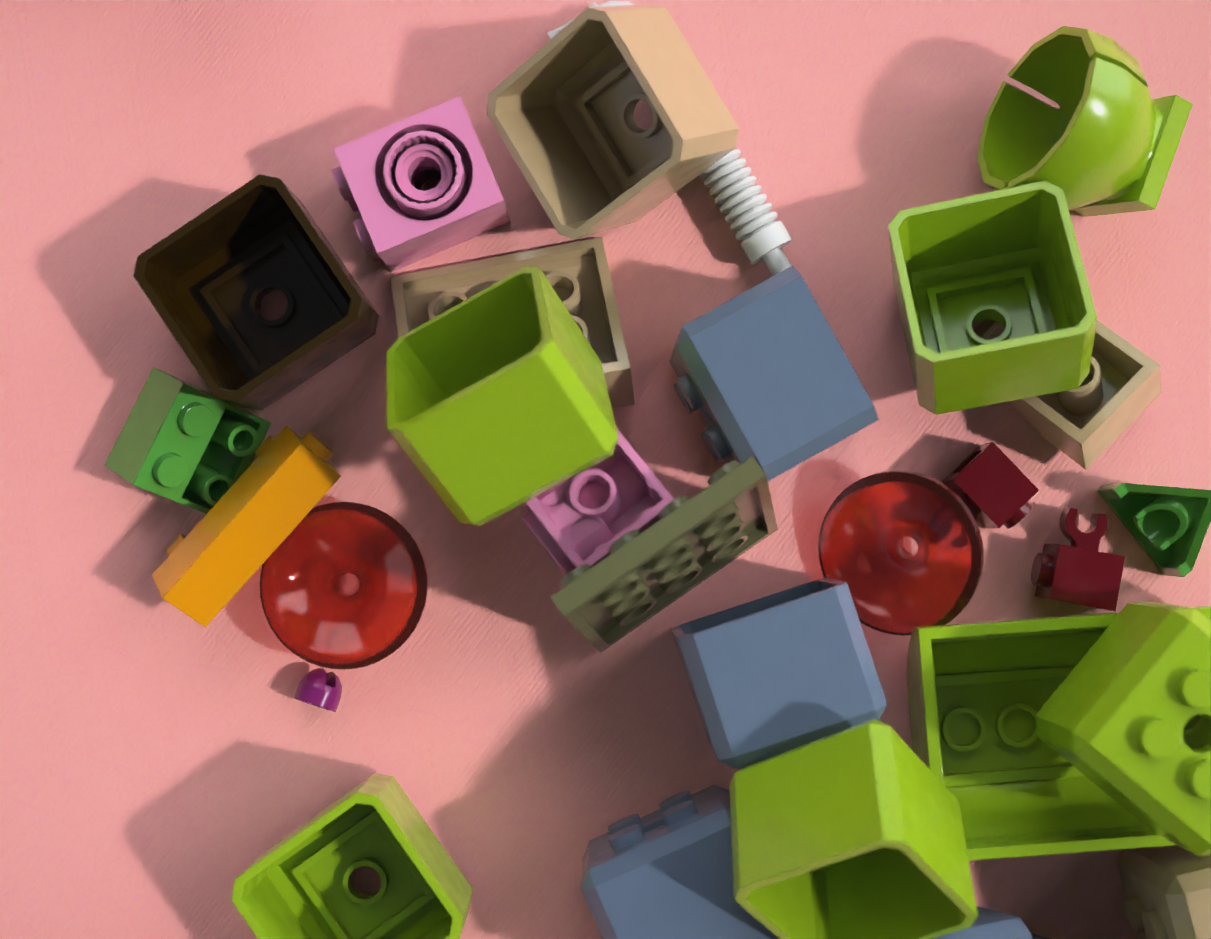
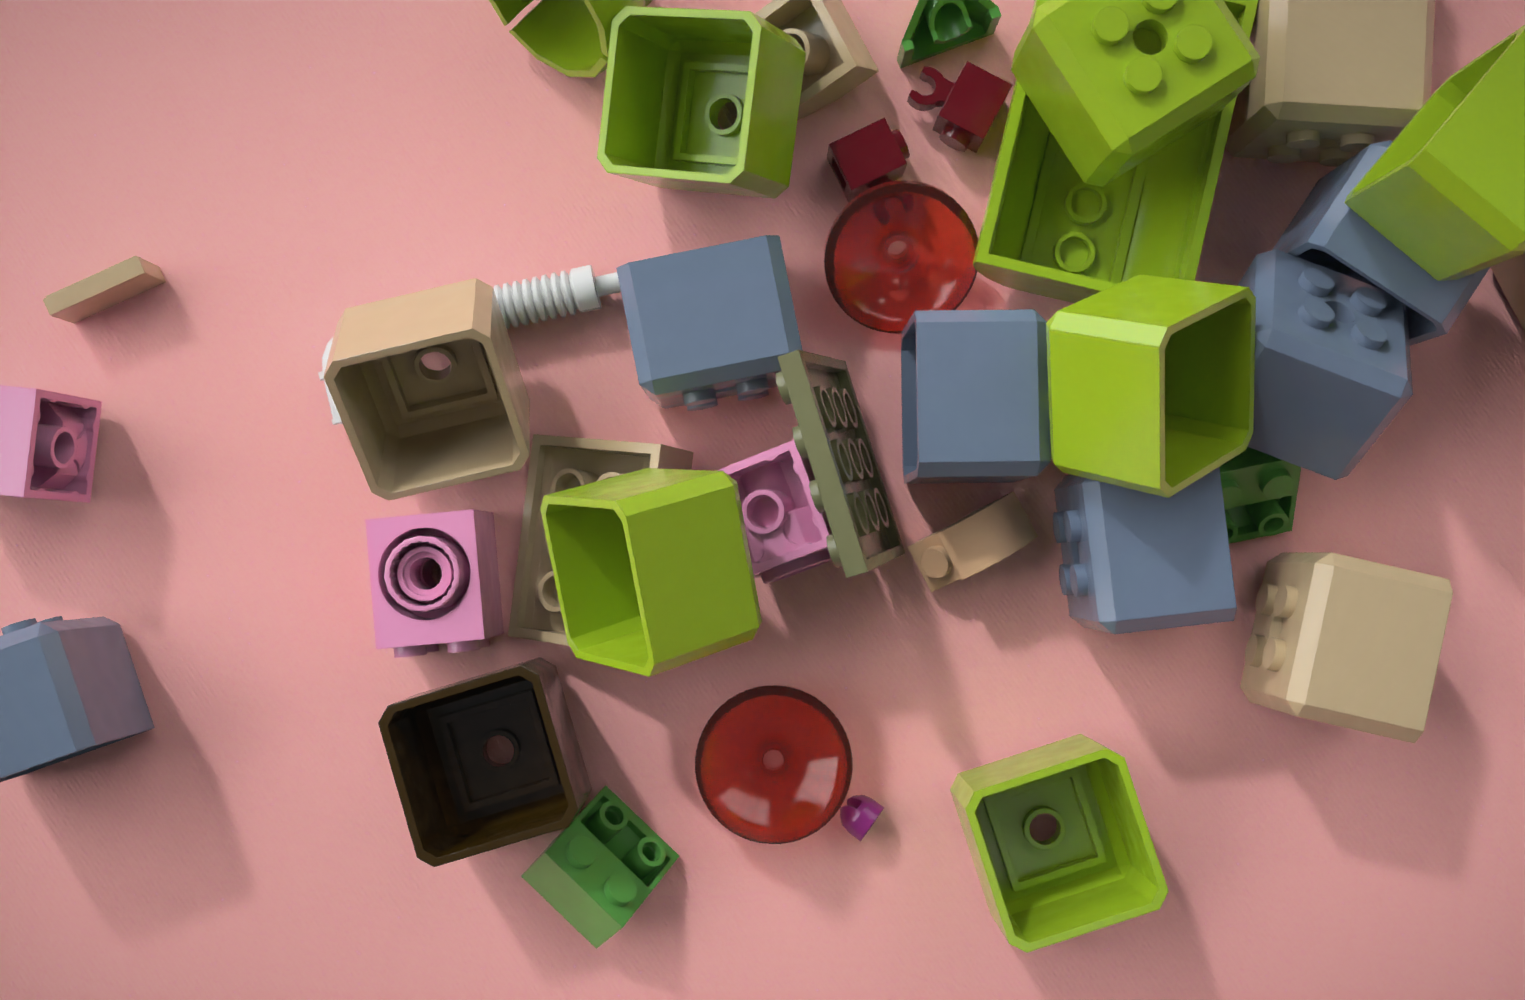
camera: 65 degrees left, 0 degrees up
(246, 524) = (691, 835): light orange brick -> none
(633, 718) = (973, 542): none -> light nougat brick

